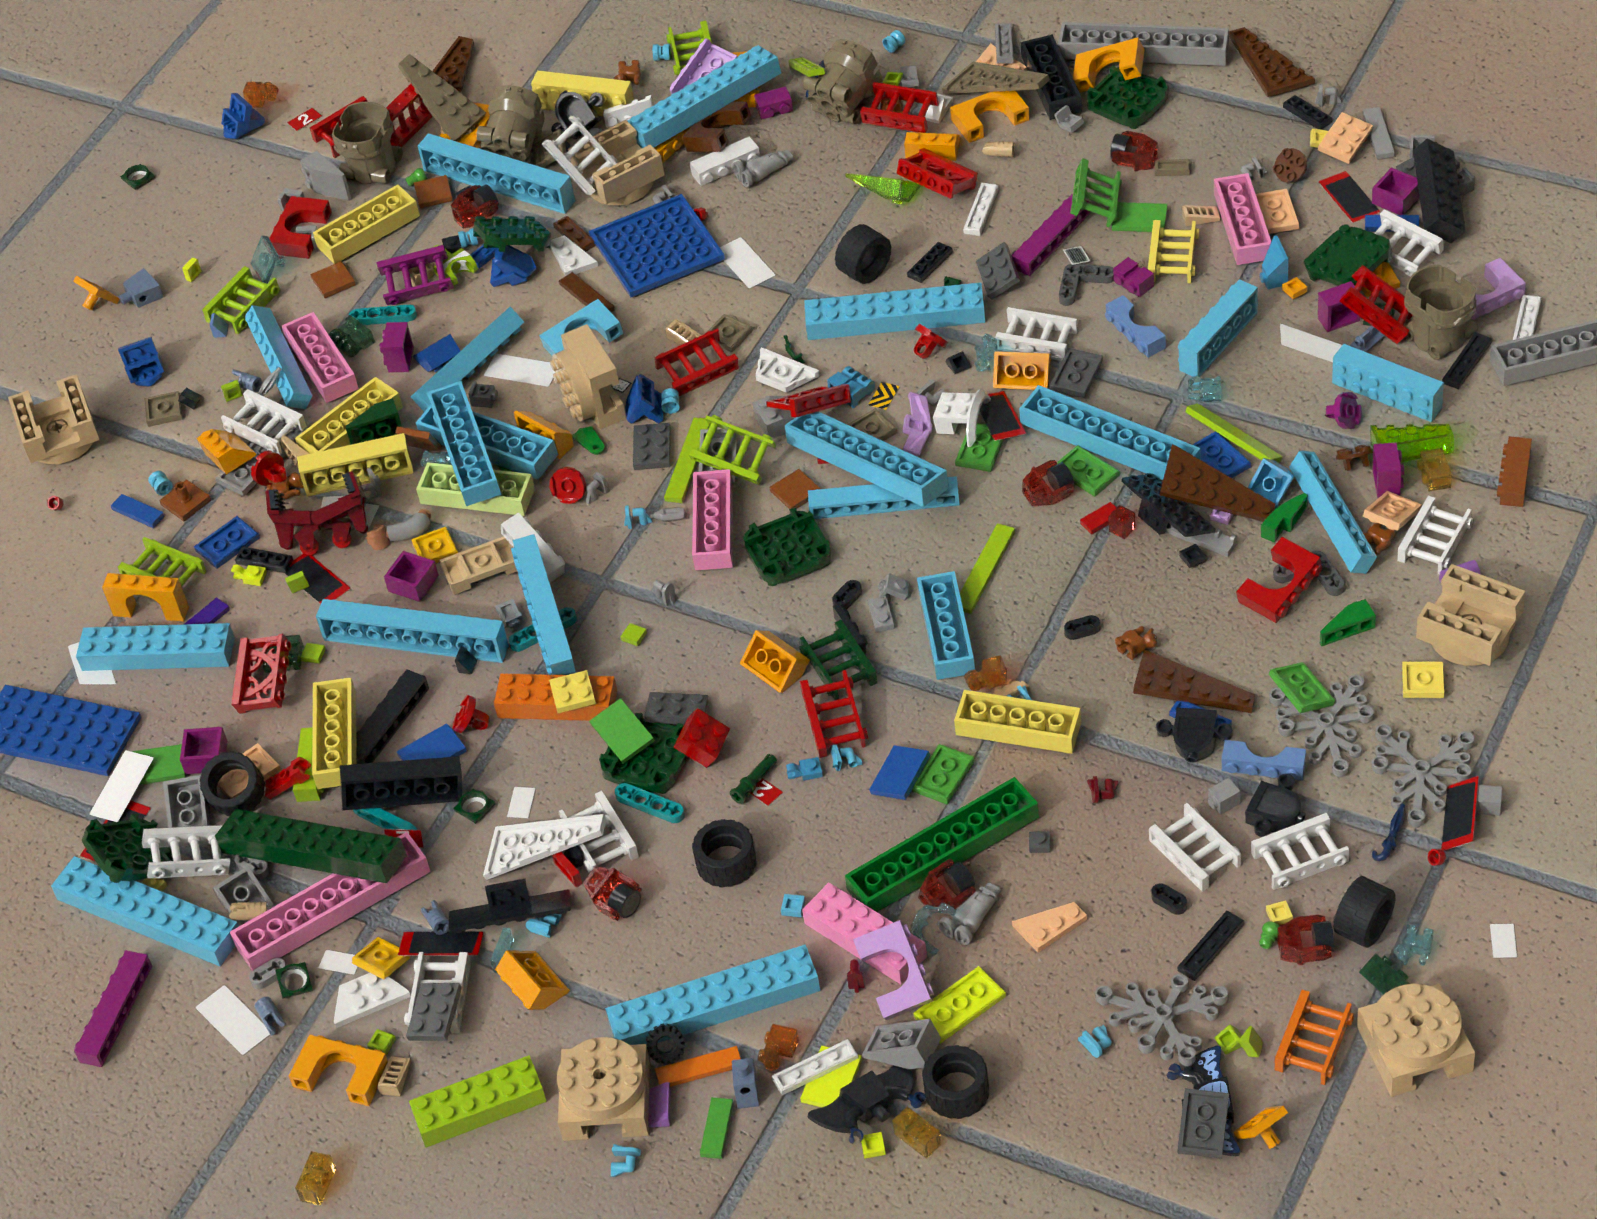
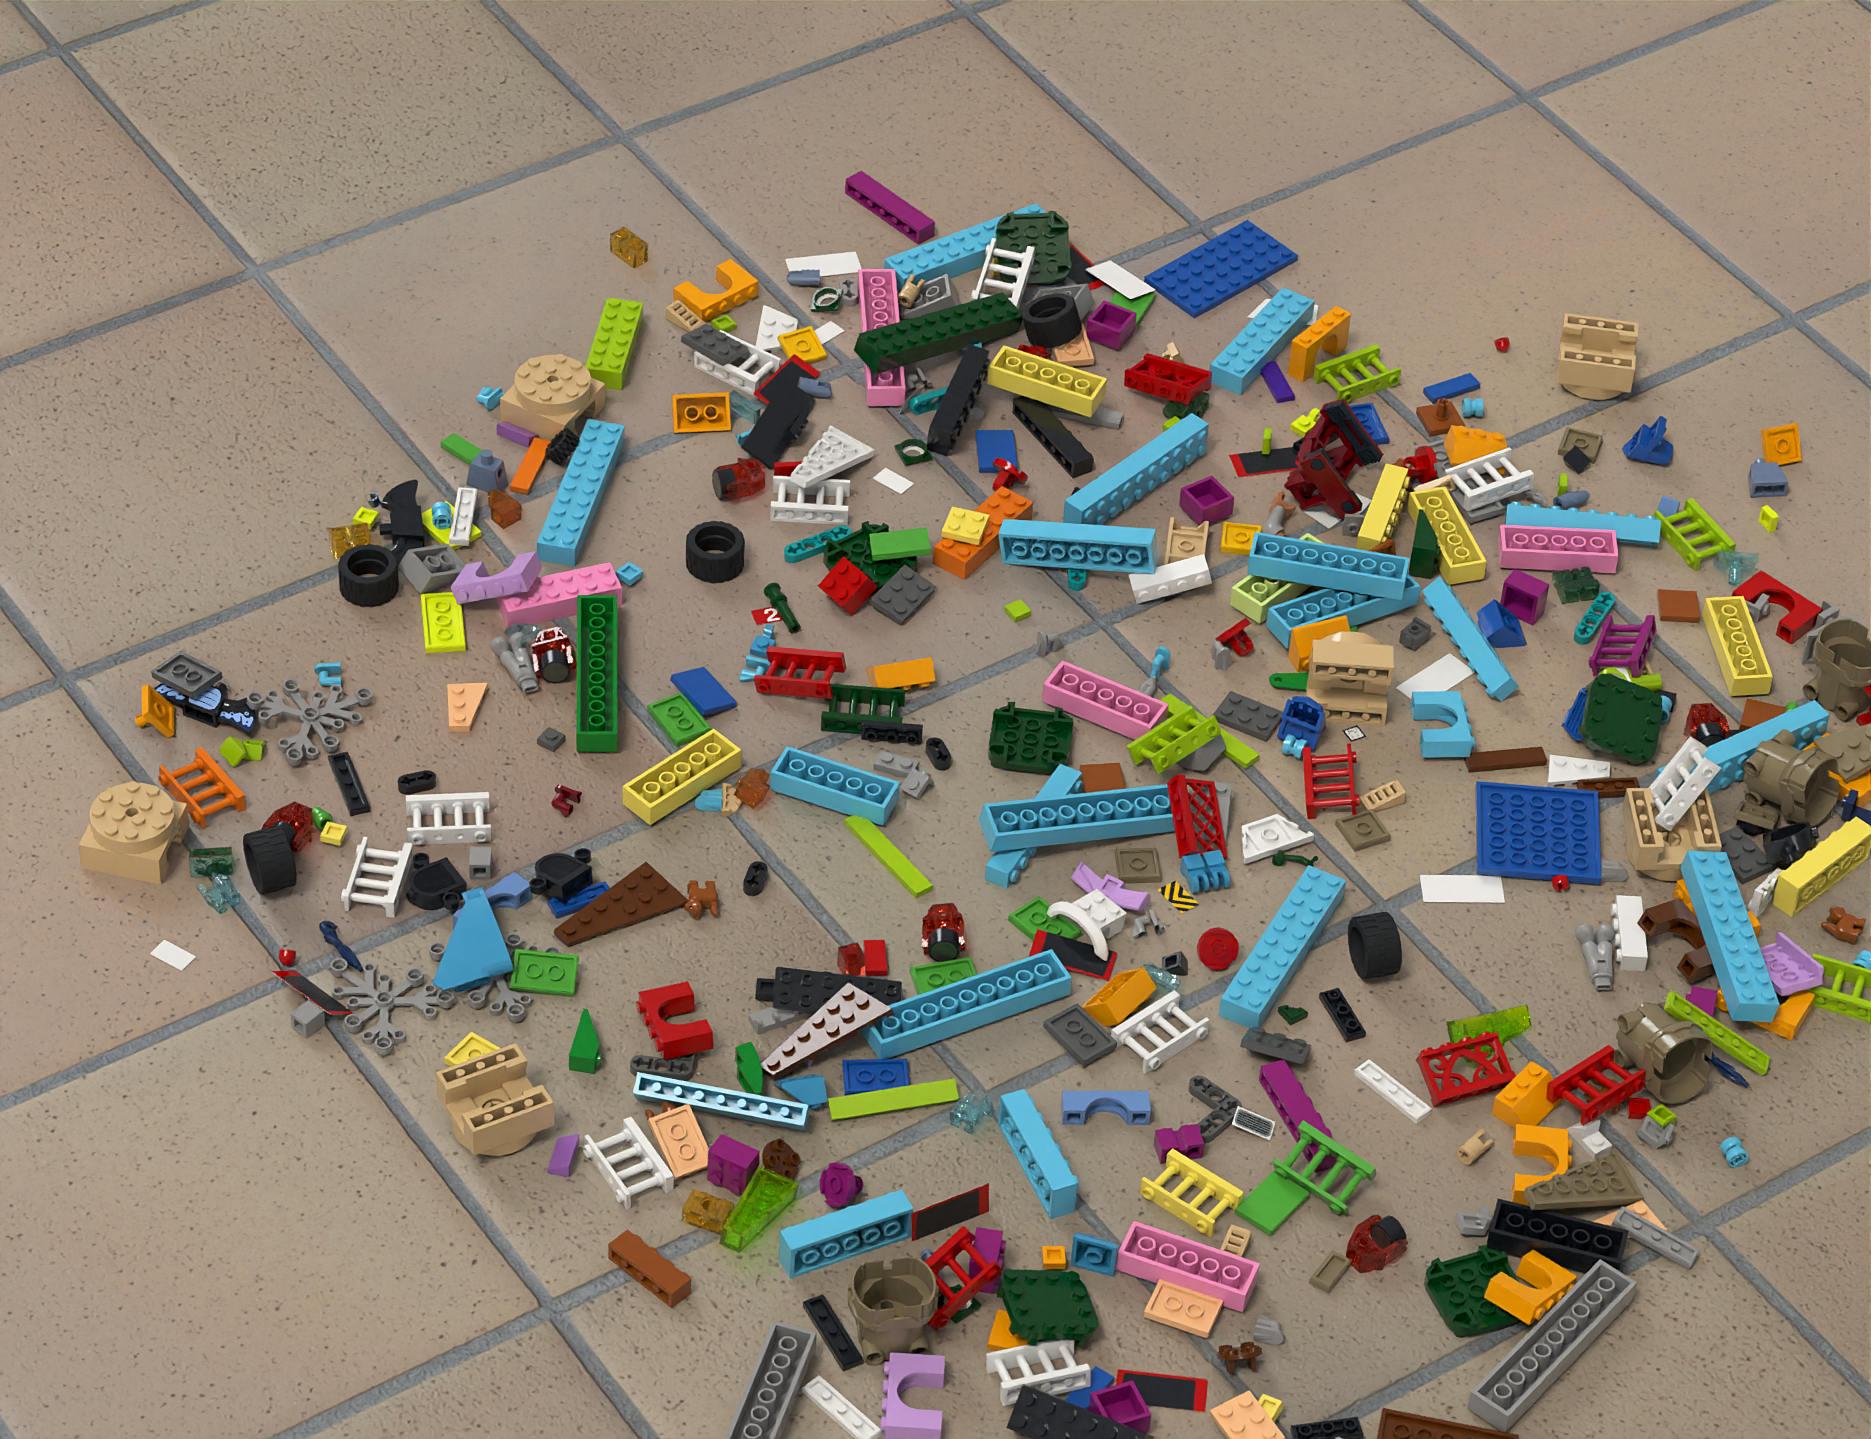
camera: 110 degrees right, 5 degrees down
(211, 695) = (1173, 353): none -> tan tile
(832, 1076) = (441, 515): none -> medium azure wheel
(1324, 722) = (474, 949): none -> dark azure panel

